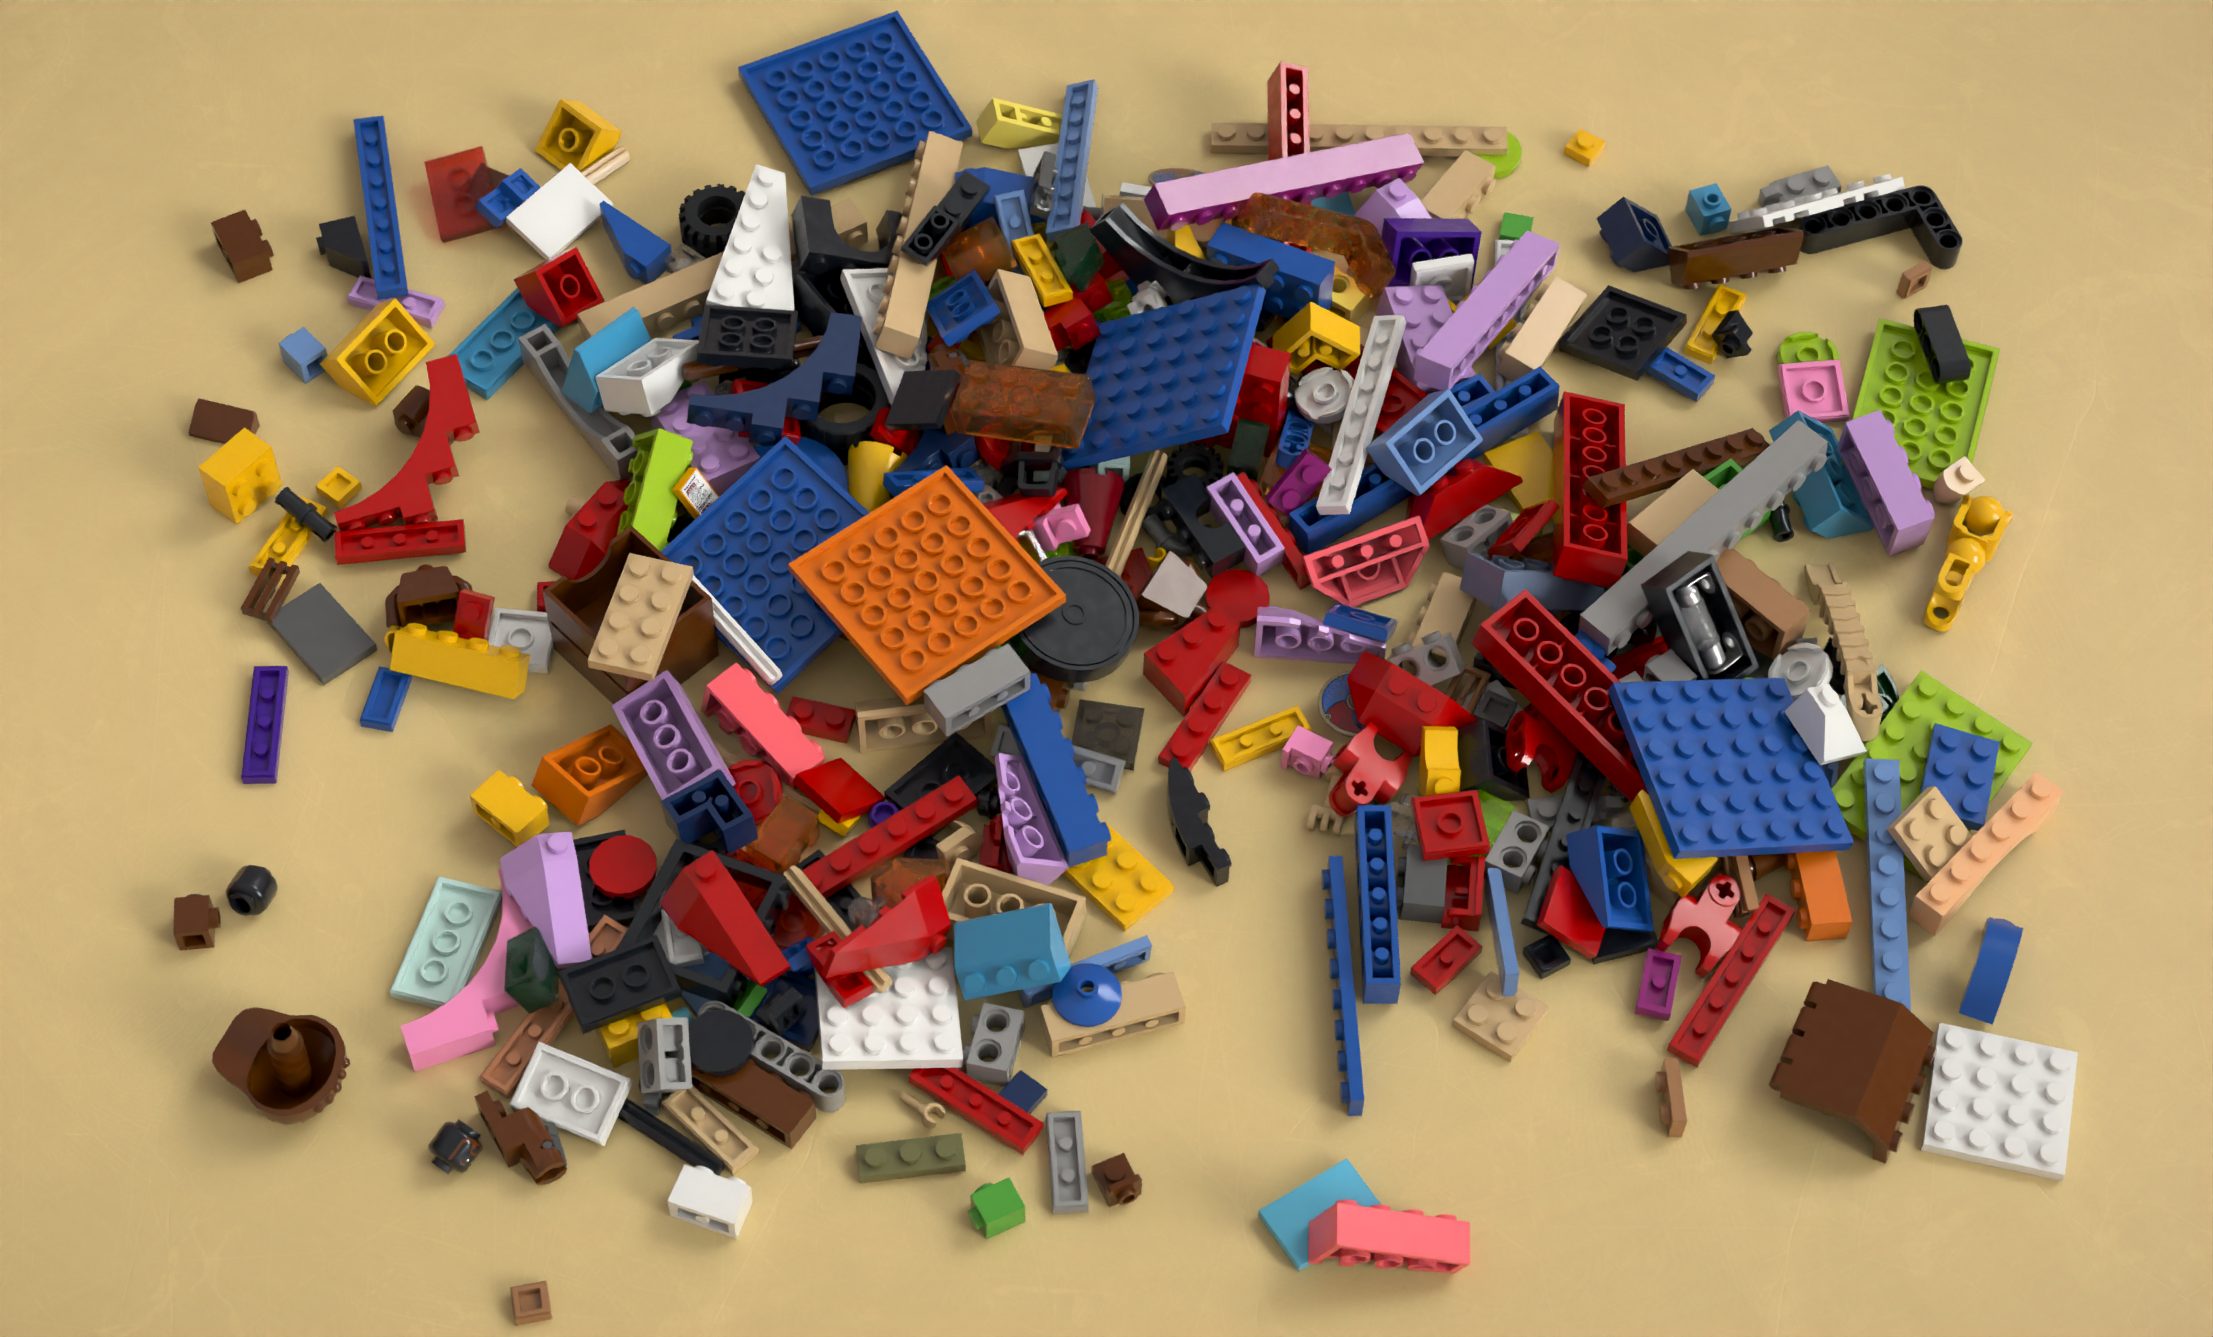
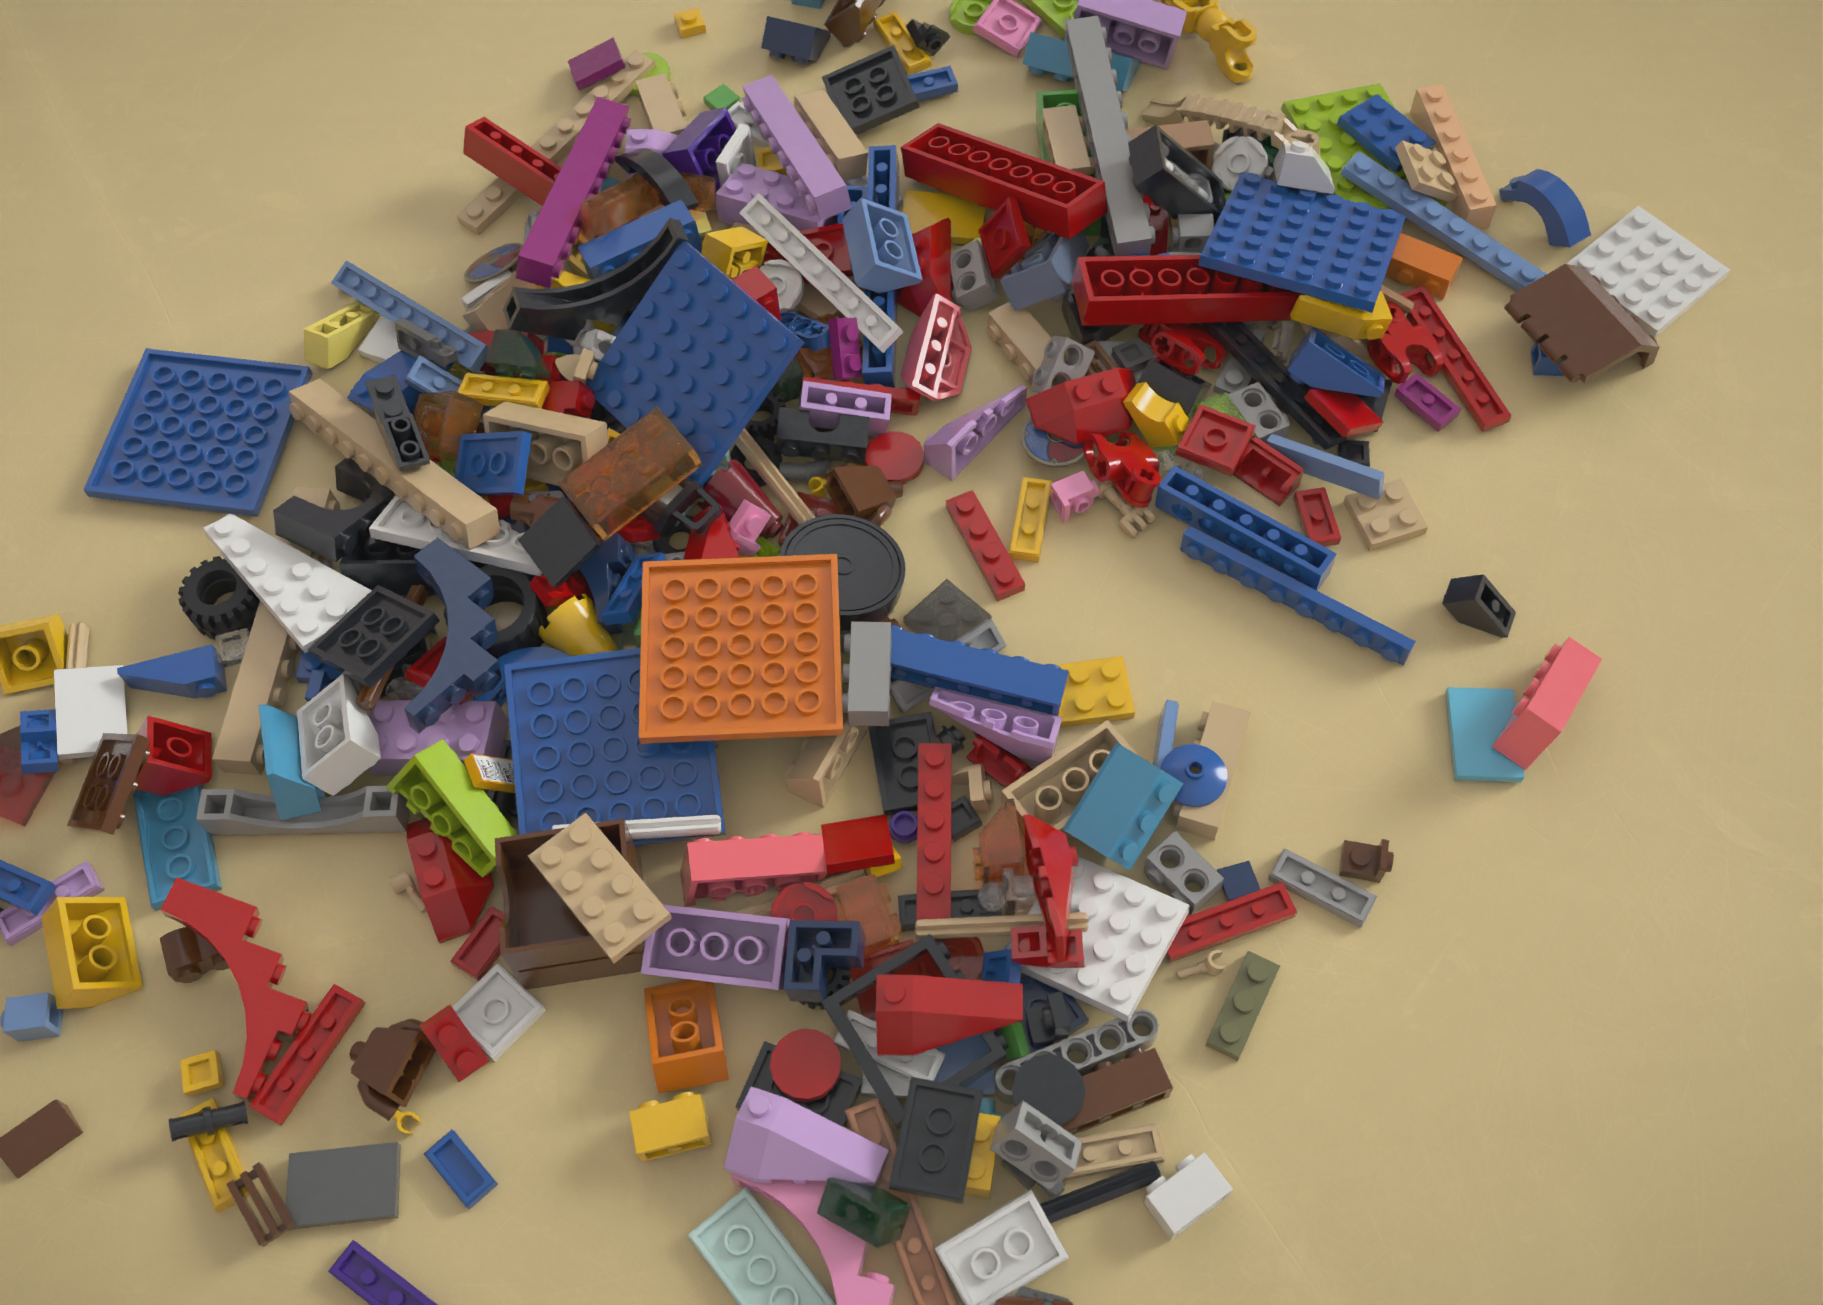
camera: 50 degrees left, 5 degrees up
(240, 476) = (116, 1155): yellow brick -> none
(460, 661) = (481, 1078): yellow brick -> none
(505, 264) = (109, 783): none -> reddish brown plate
(822, 719) = (771, 816): red plate -> none
(996, 1208) = (1338, 966): bright green brick -> none
(1106, 305) = (578, 367): none -> tan plate
(1189, 824) = (1064, 608): black slope -> none
(1191, 656) = (932, 521): red wedge -> none
(1355, 234) = (660, 175): none -> black slope
(1360, 622) = (988, 390): blue tile -> none
(1423, 887) = (1248, 487): dark grey brick -> none
(1455, 1141) = (1479, 605): none -> black slope
(1462, 109) = (596, 64): none -> magenta tile
(1666, 470) = (1025, 123): reddish brown plate -> none
(1672, 1110) = (1529, 449): medium nougat plate -> none

